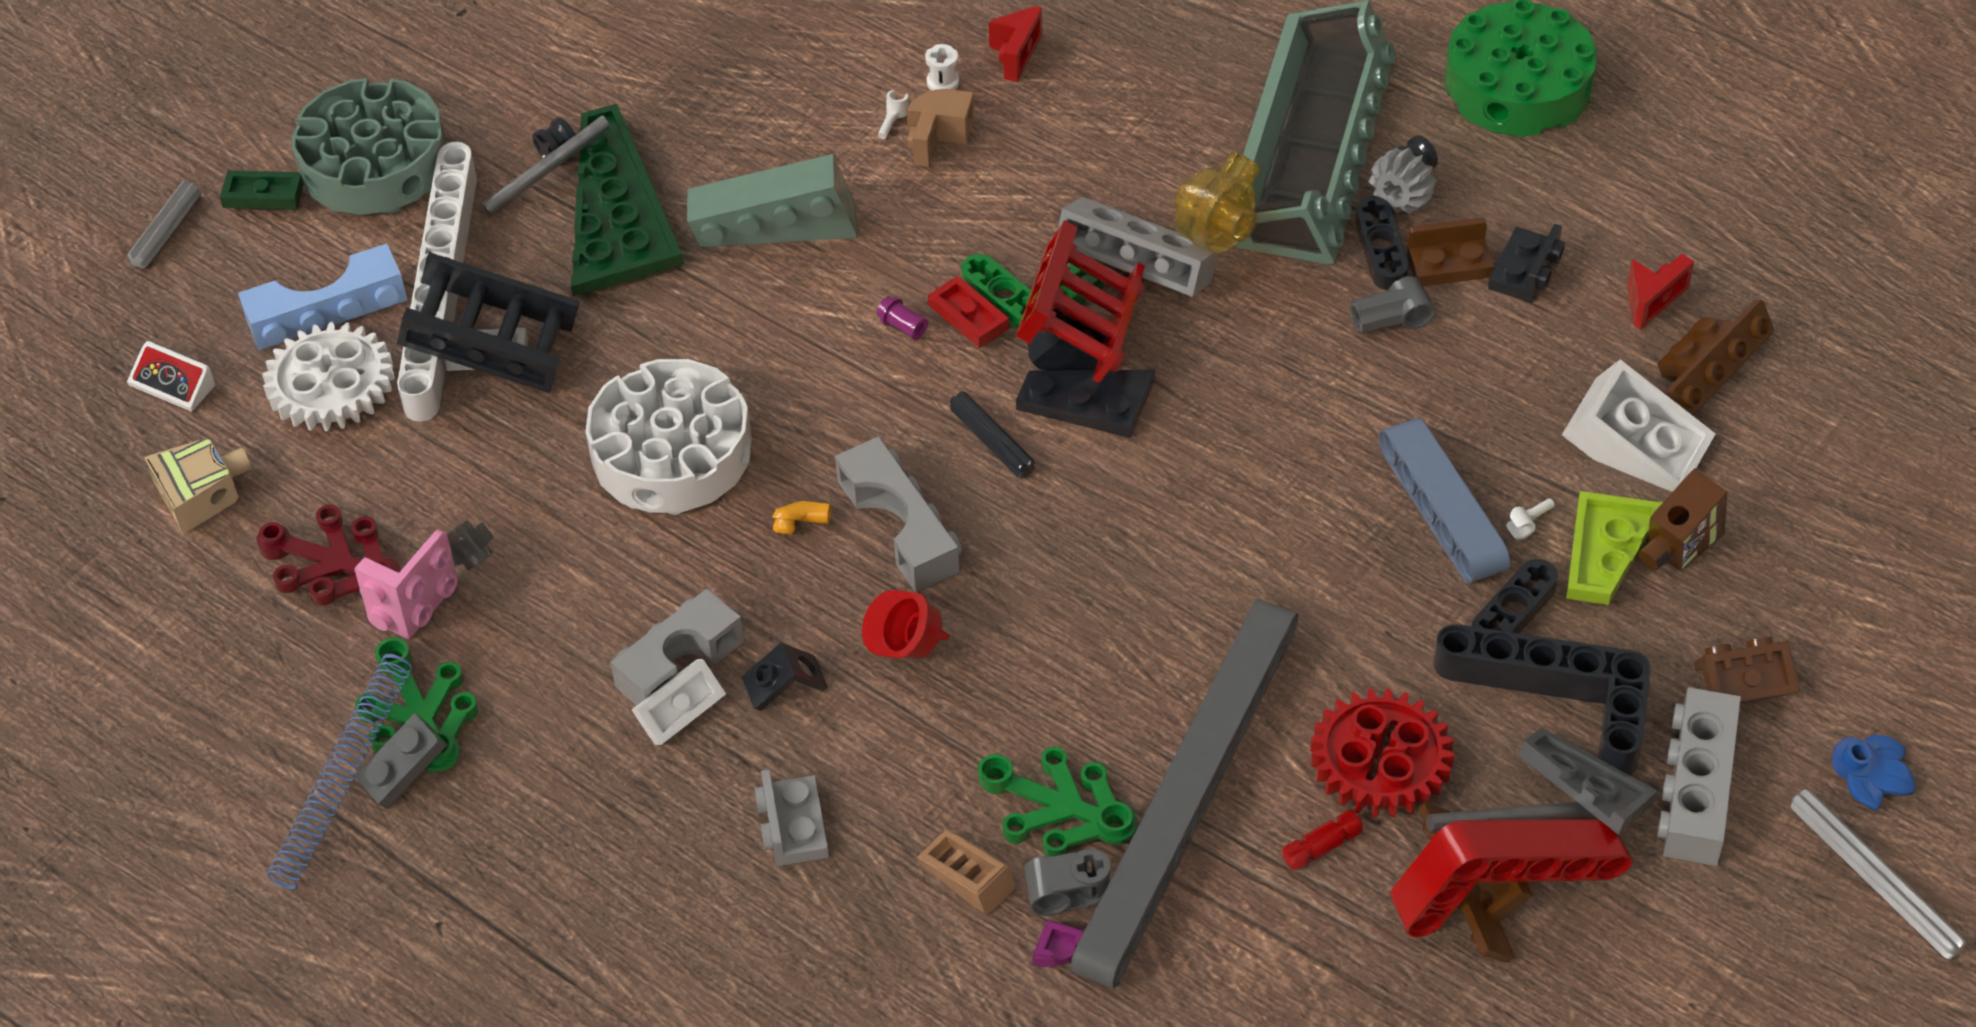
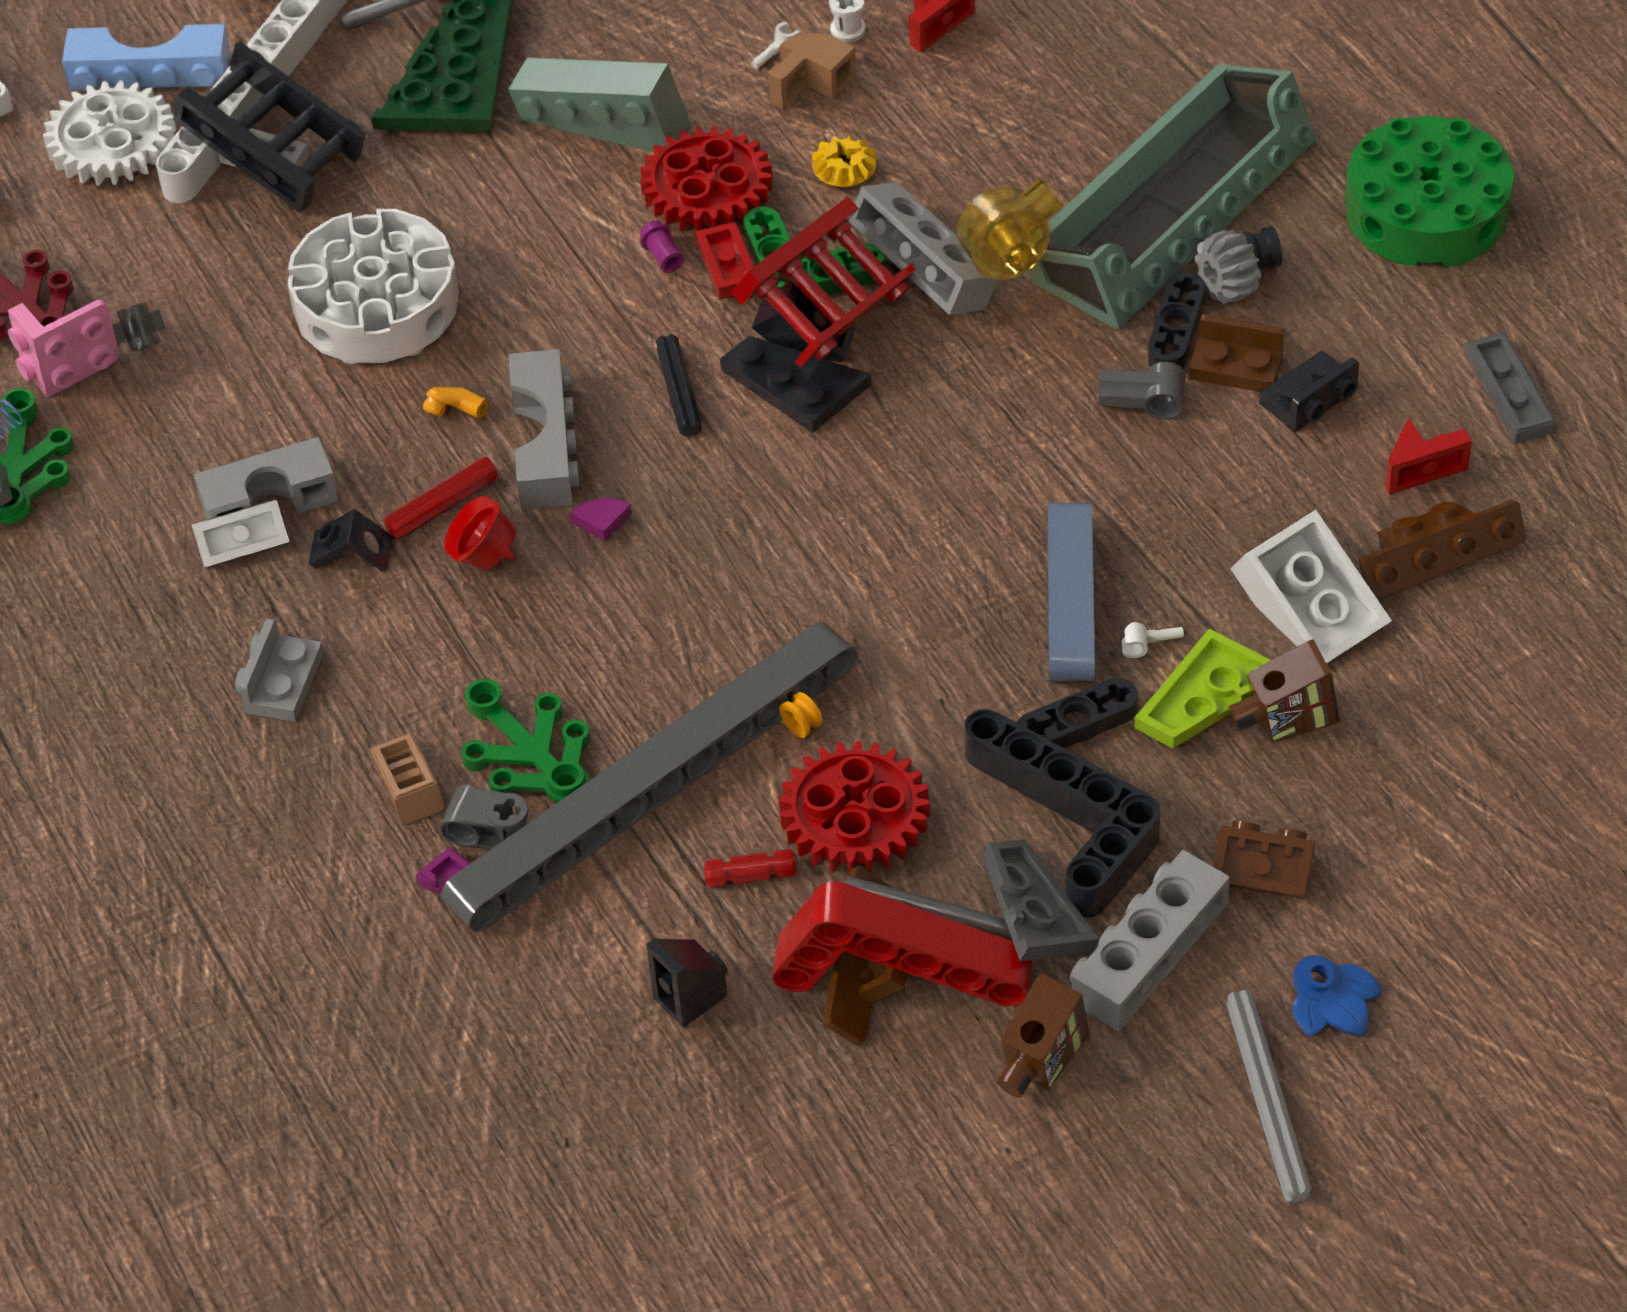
camera: 25 degrees right, 0 degrees up
(840, 606) = (440, 497): none -> red axle
(906, 246) = (706, 178): none -> red gear
(994, 574) = (601, 516): none -> magenta tile
(1013, 204) = (836, 172): none -> yellow gear
(1284, 687) = (801, 715): none -> light orange bush
(1338, 961) = (685, 977): none -> black slope
(1675, 893) = (1042, 1036): none -> reddish brown torso
(1681, 209) = (1509, 387): none -> dark grey tile

